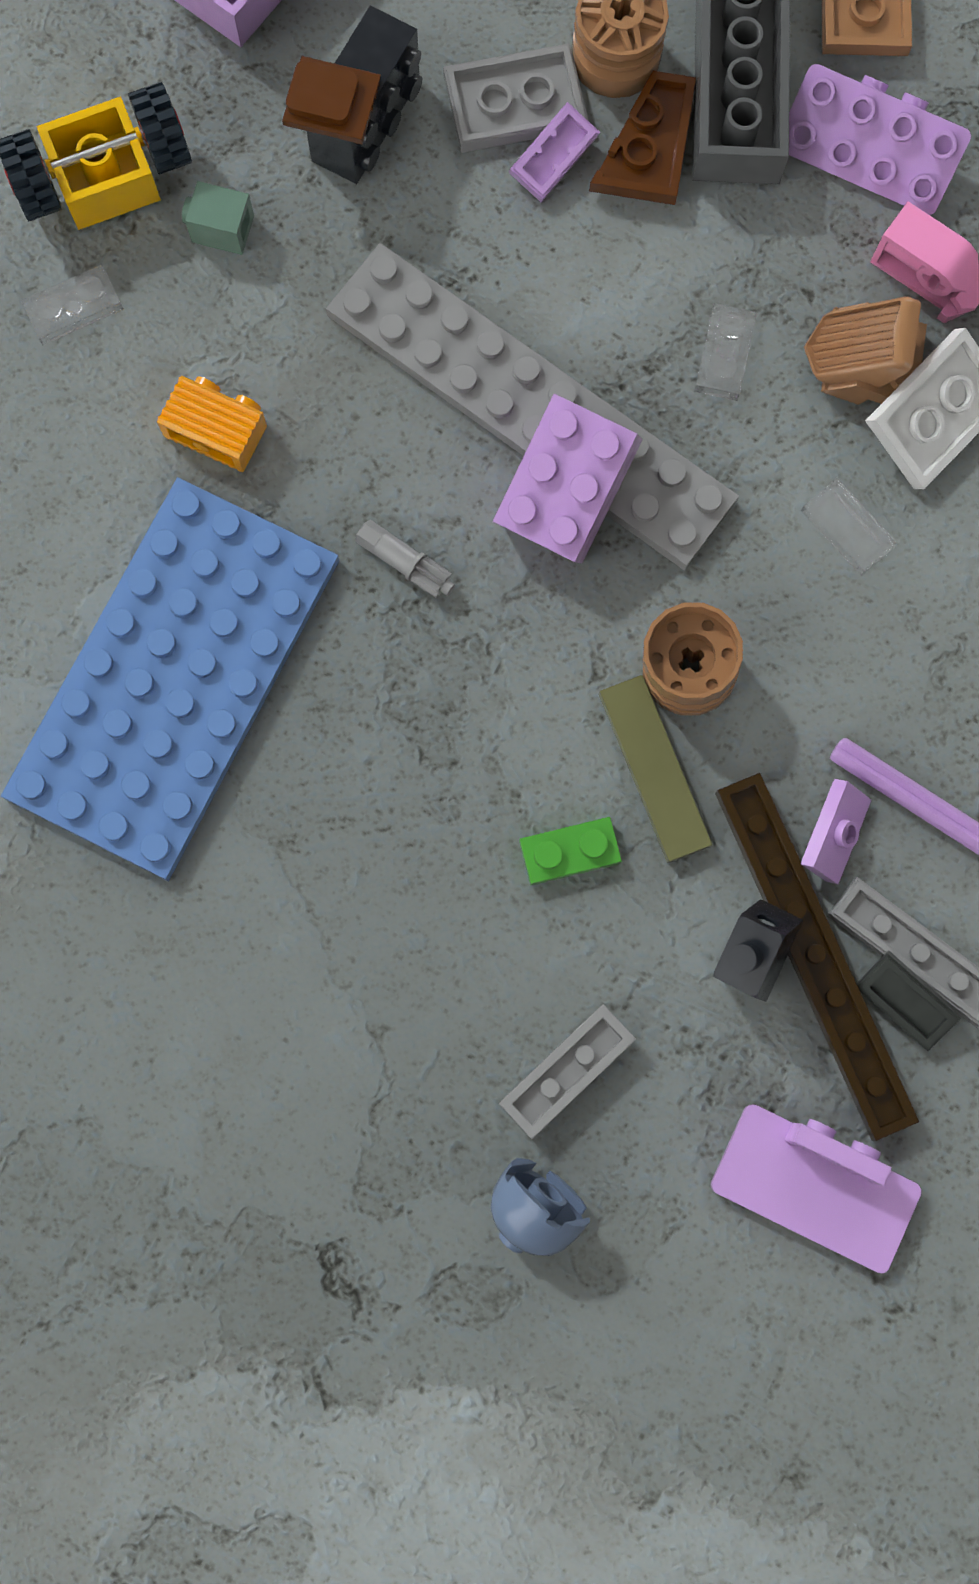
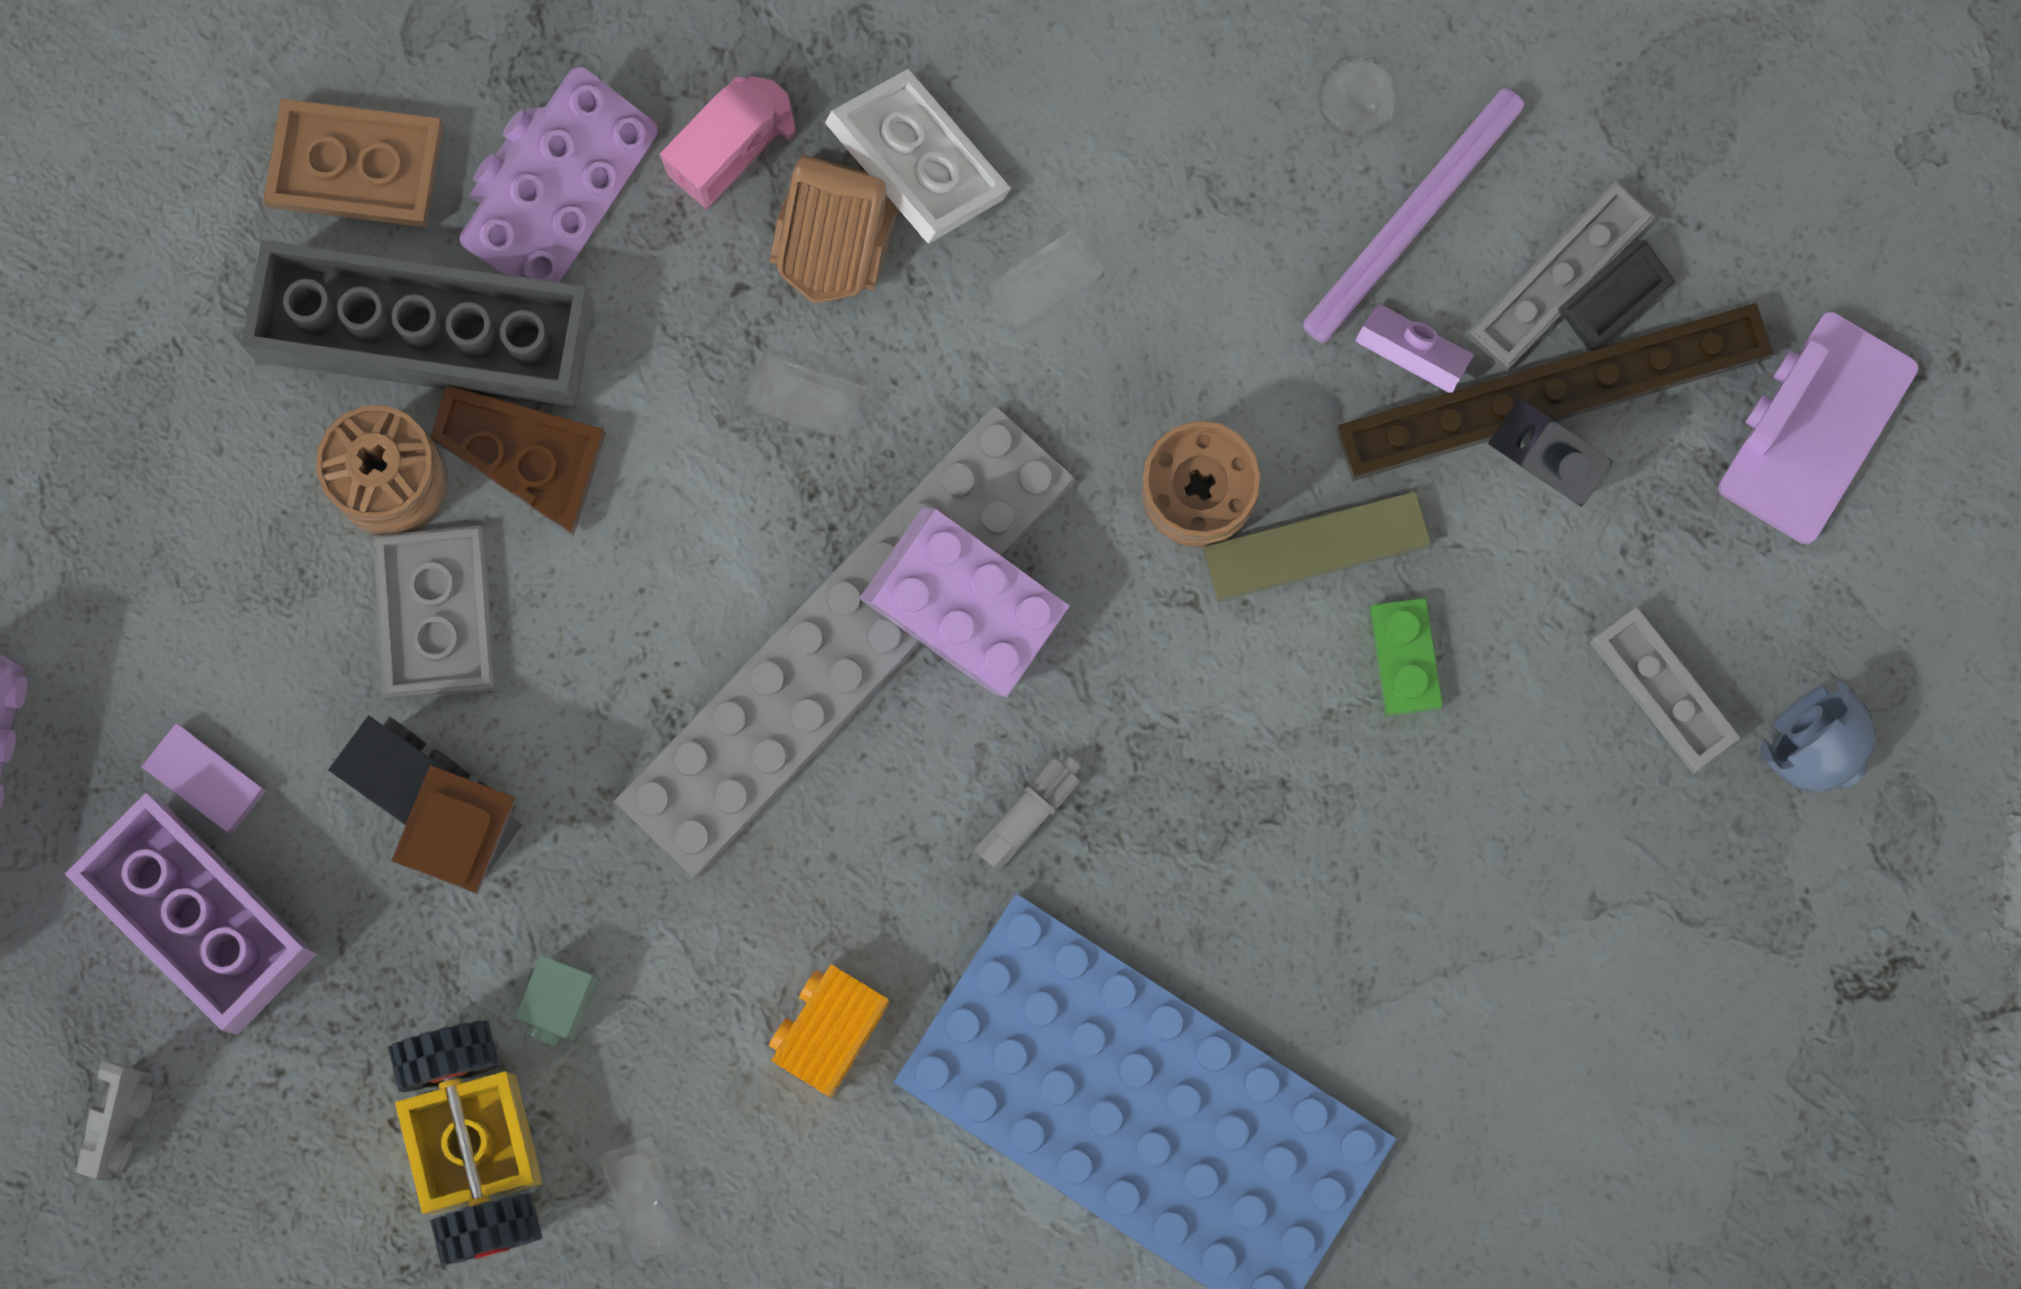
camera: 75 degrees left, 0 degrees up
(554, 152) = (521, 571): lavender plate -> none

